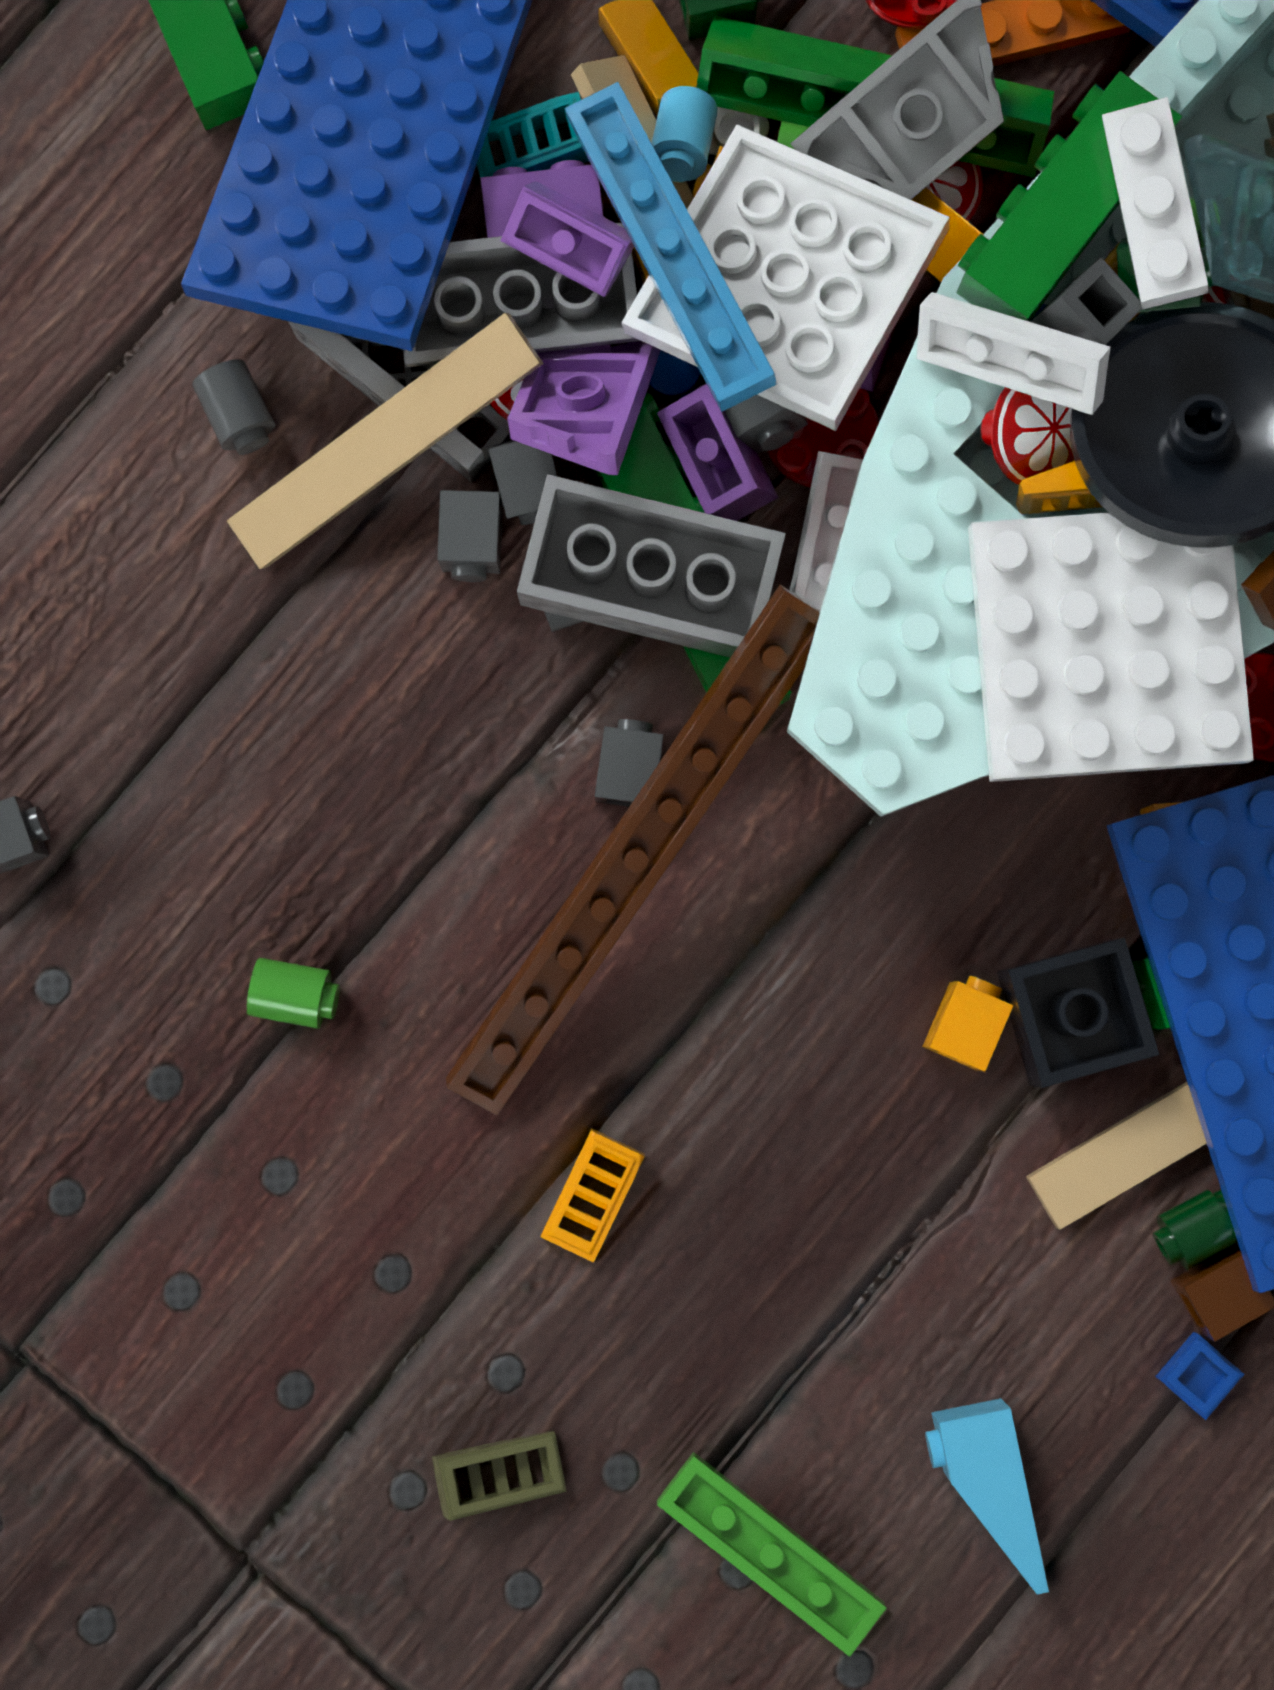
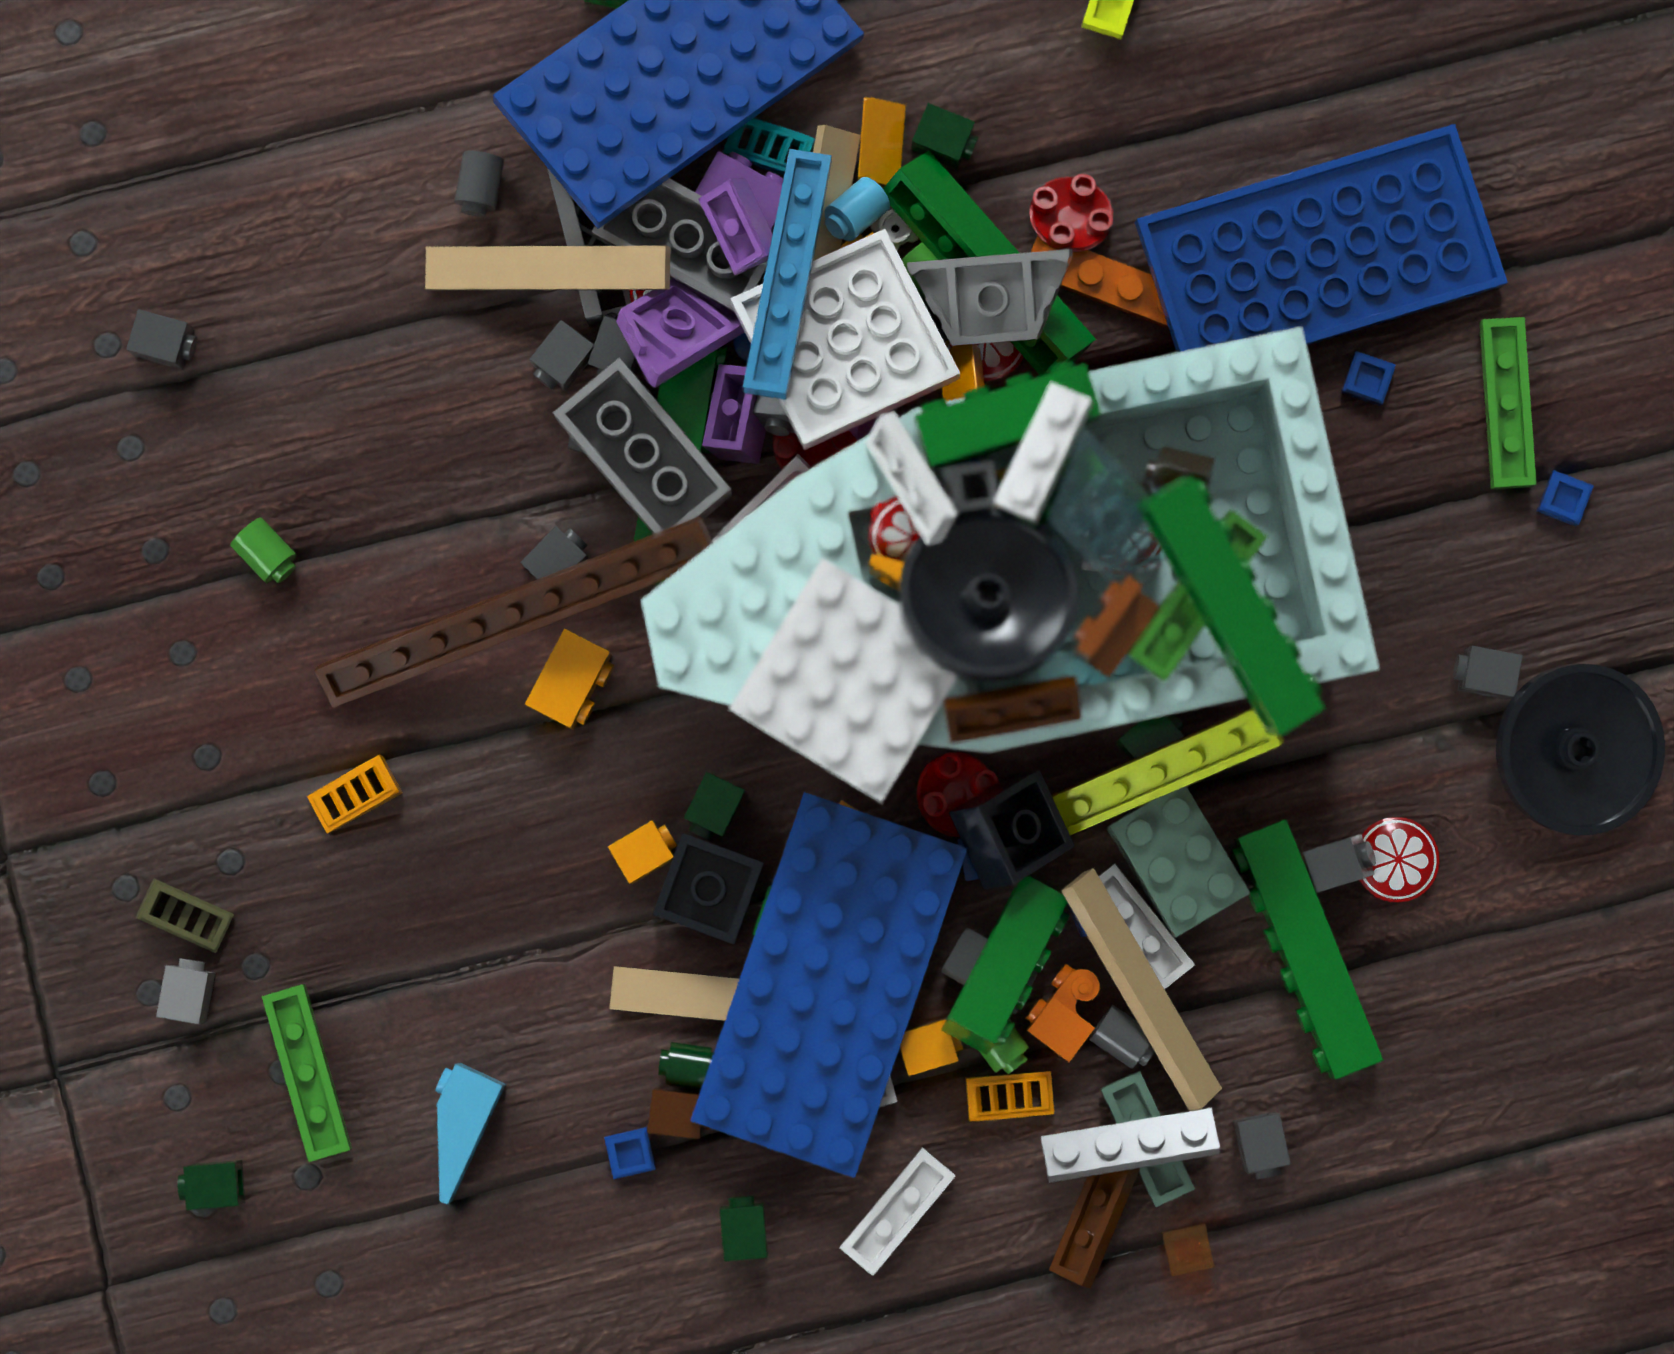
camera: 35 degrees right, 0 degrees up
(566, 1563) = (186, 992): none -> light grey brick
(744, 889) = (570, 680): none -> light orange brick
(1010, 915) = (713, 806): none -> dark green brick

